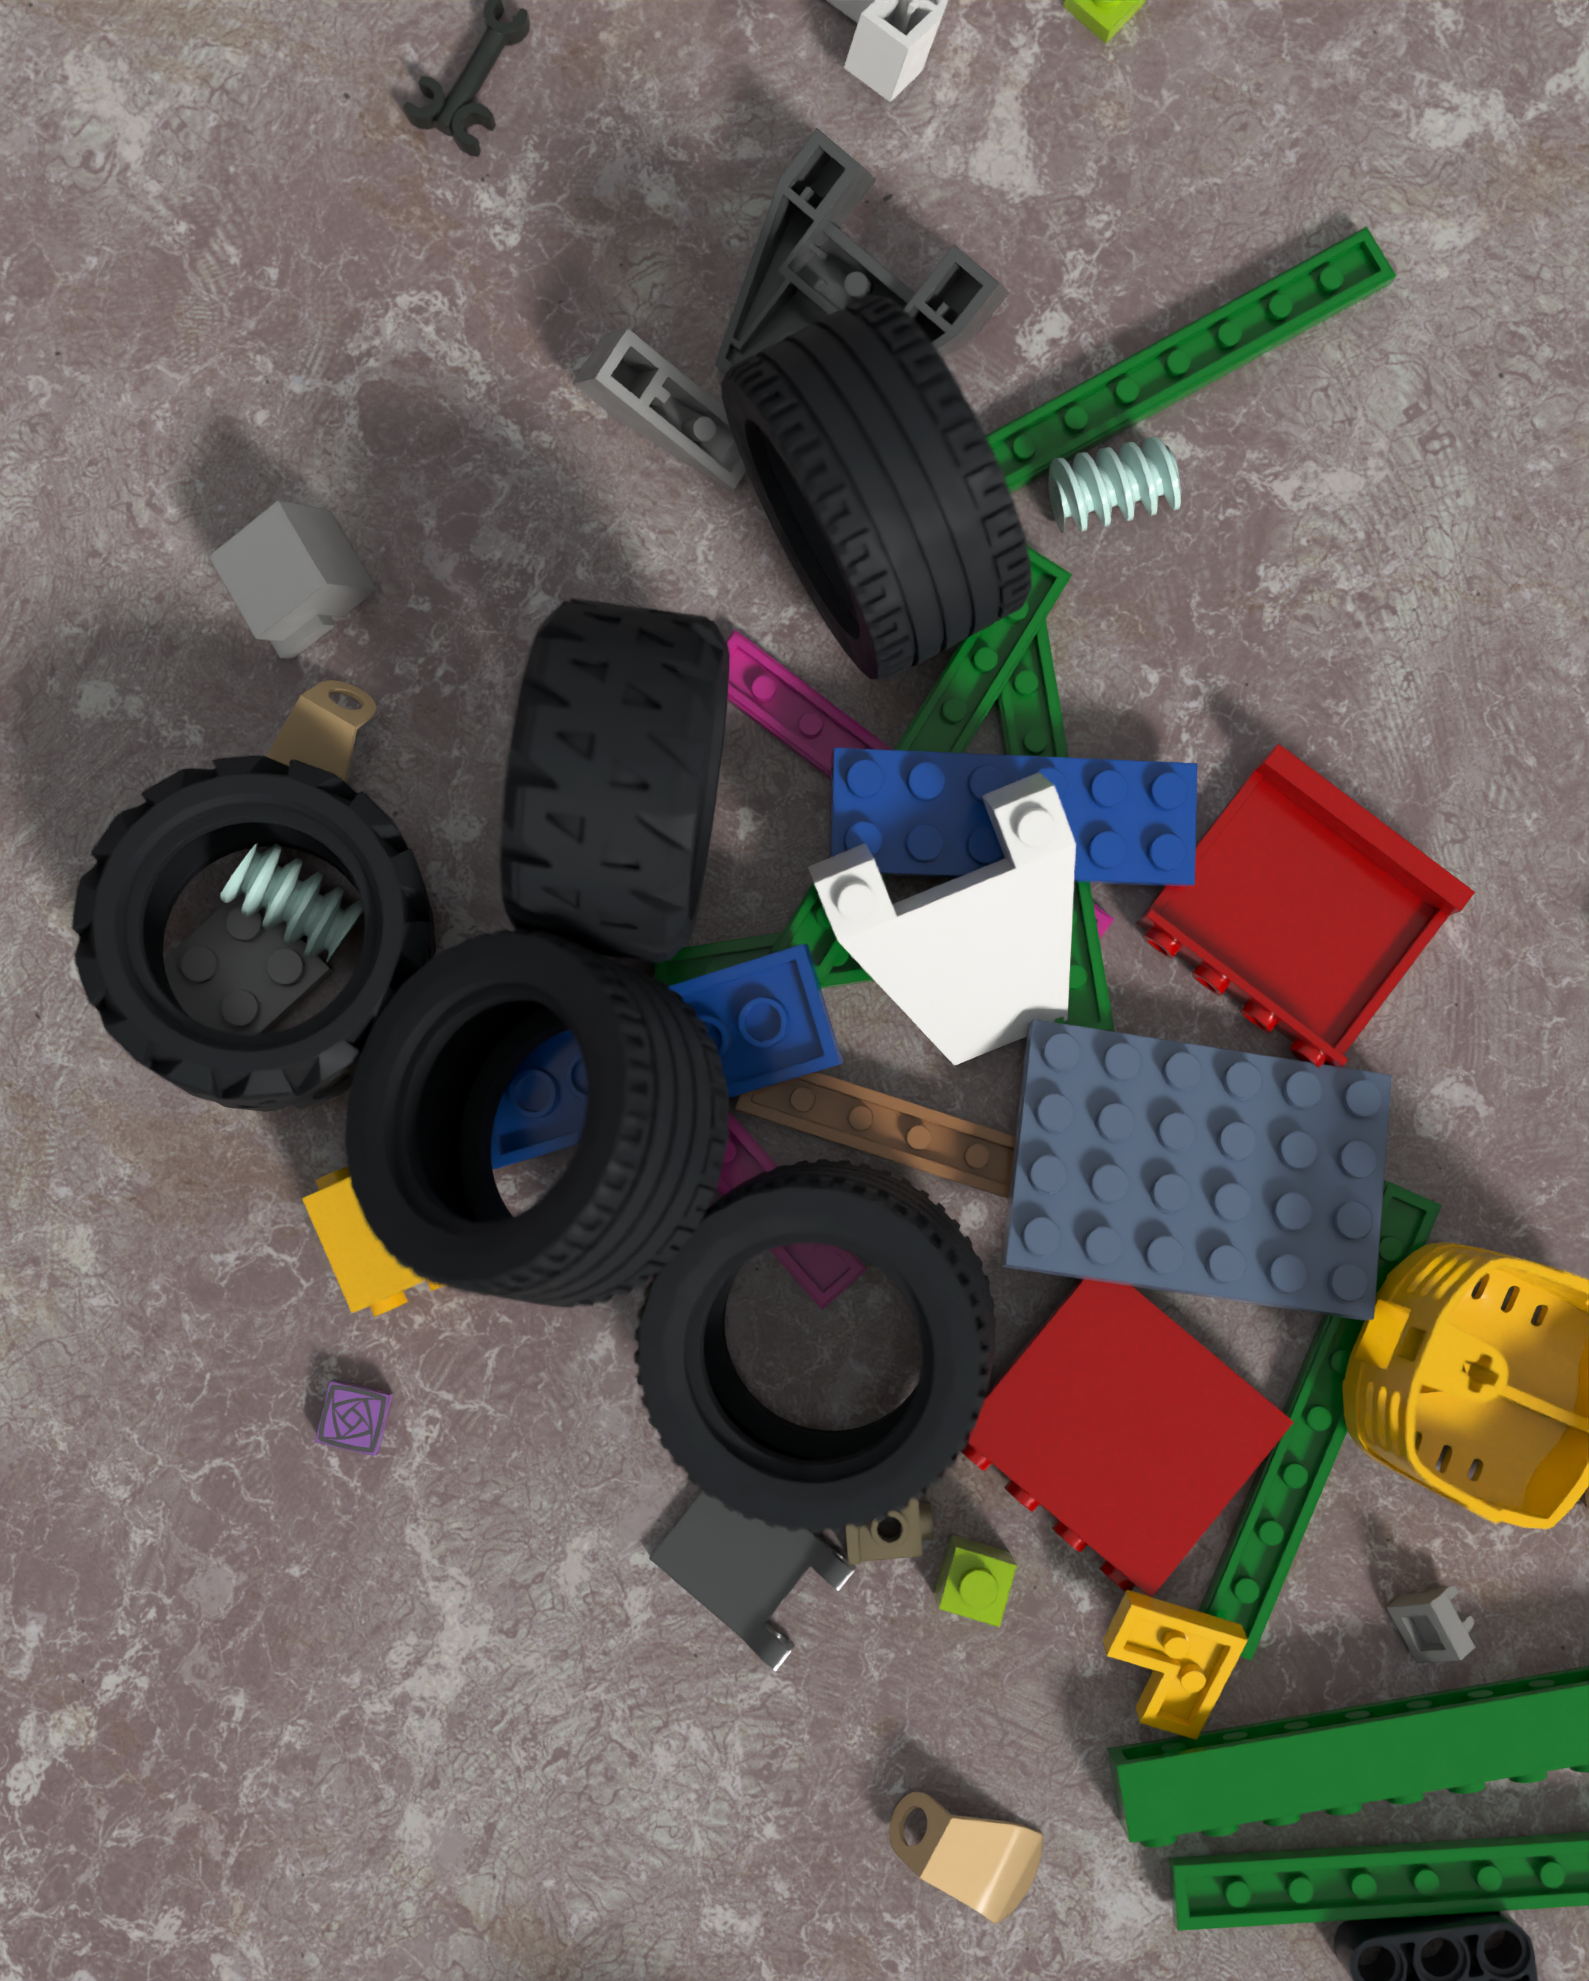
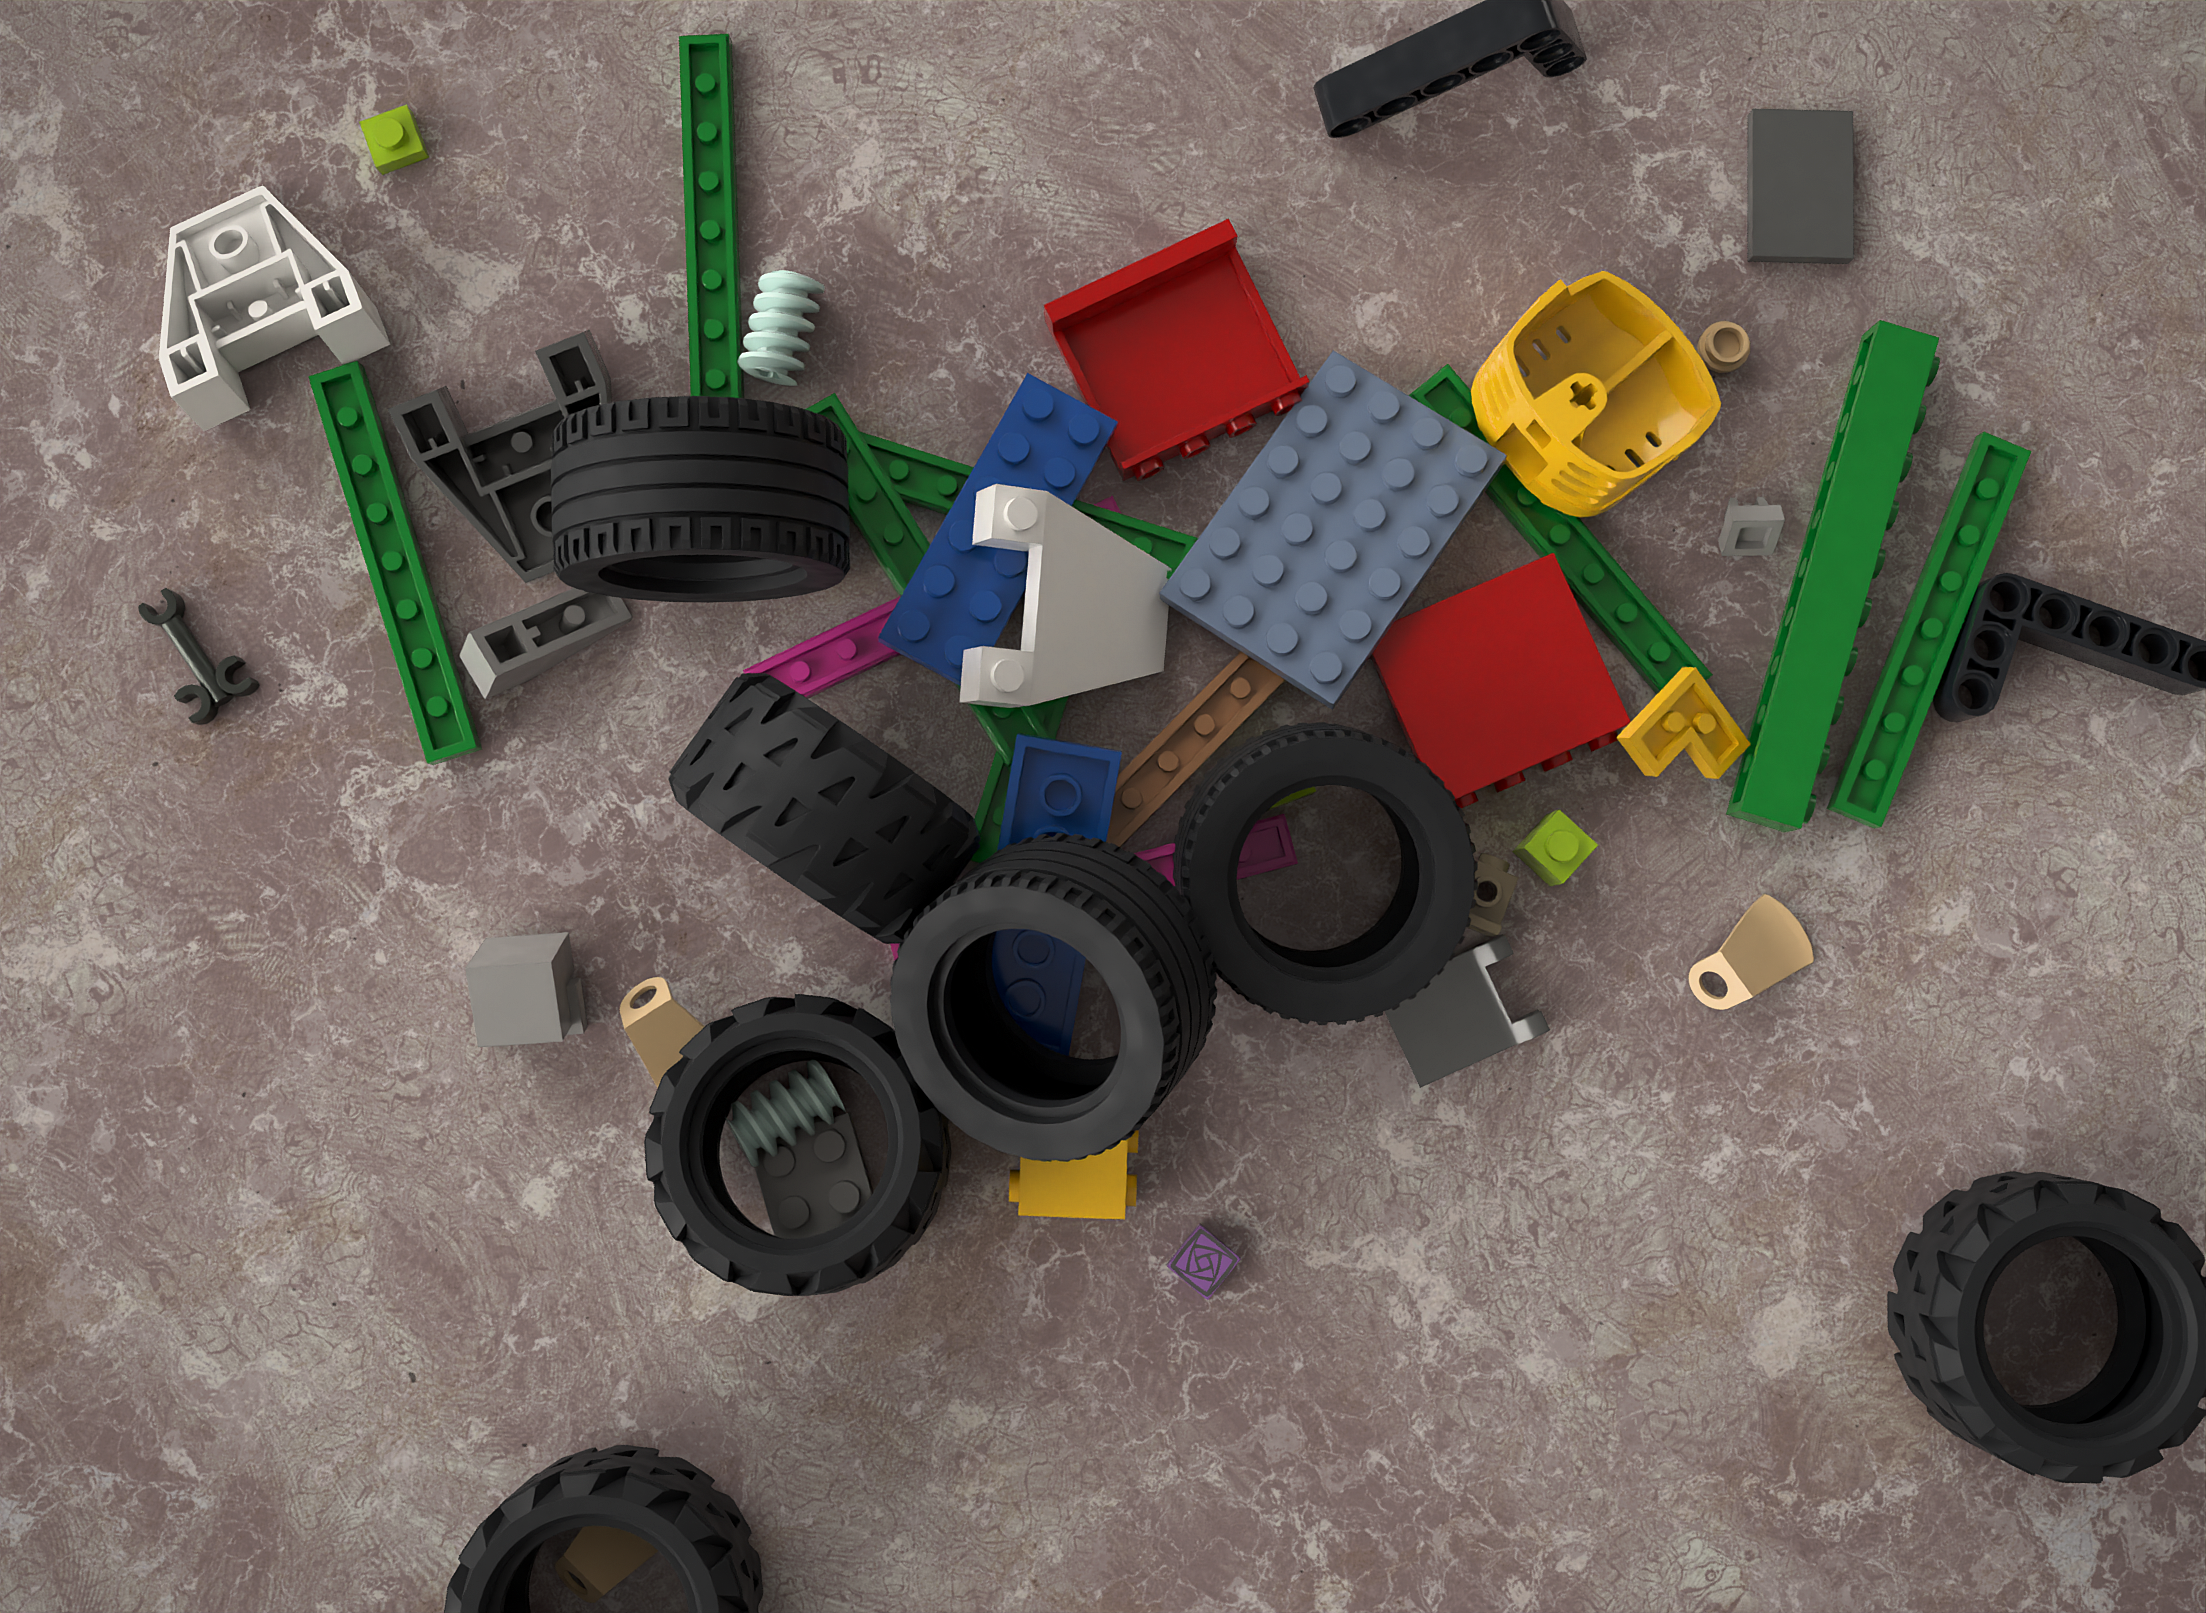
camera: 65 degrees left, 0 degrees up
(667, 223) = (395, 563): none -> green plate

